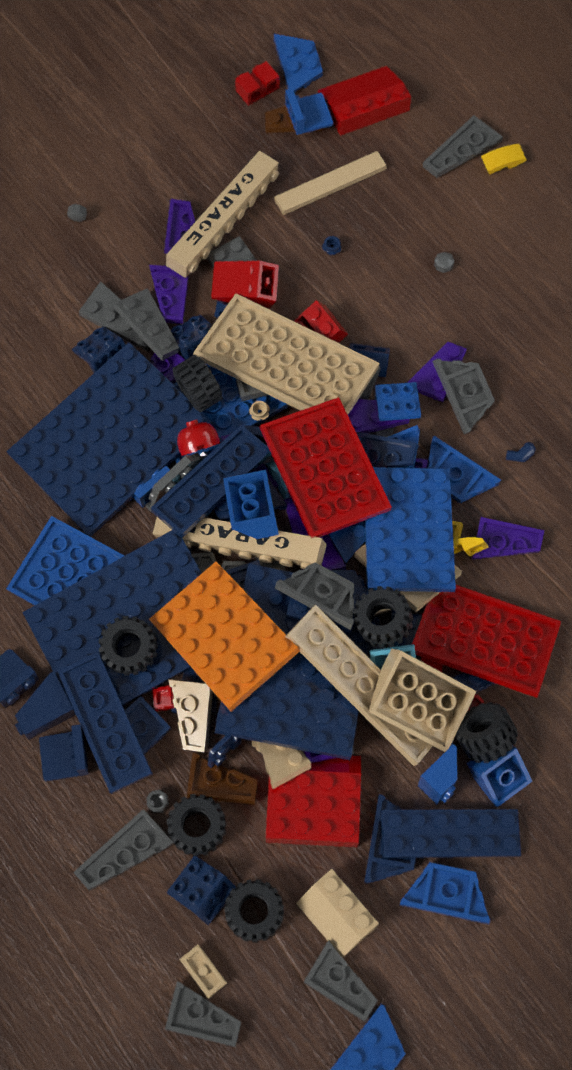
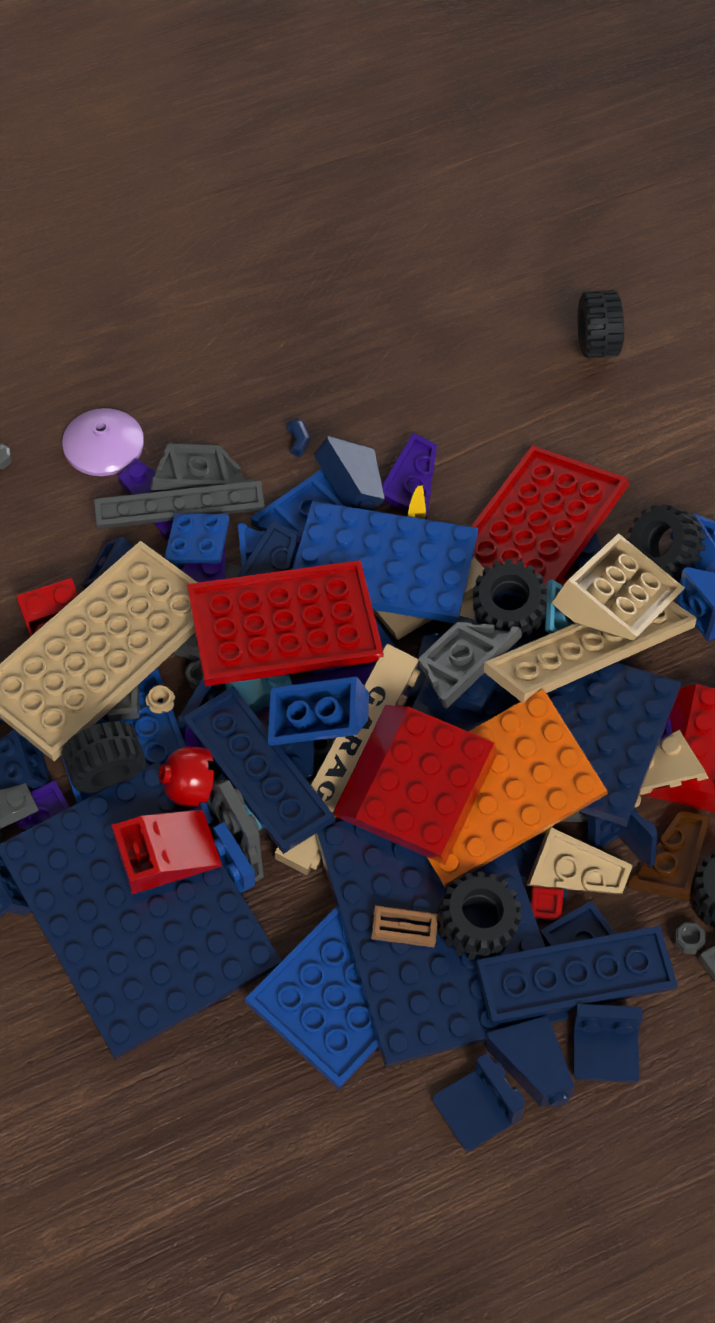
camera: 80 degrees left, 10 degrees down
(113, 581) = (405, 938): none -> medium nougat tile
(140, 438) = (165, 848): none -> red slope
(209, 580) = (416, 781): none -> red slope
(428, 385) = (163, 505): none -> dark grey plate
(477, 334) = (103, 451): none -> lavender dish
(489, 495) = (351, 472): none -> dark blue slope

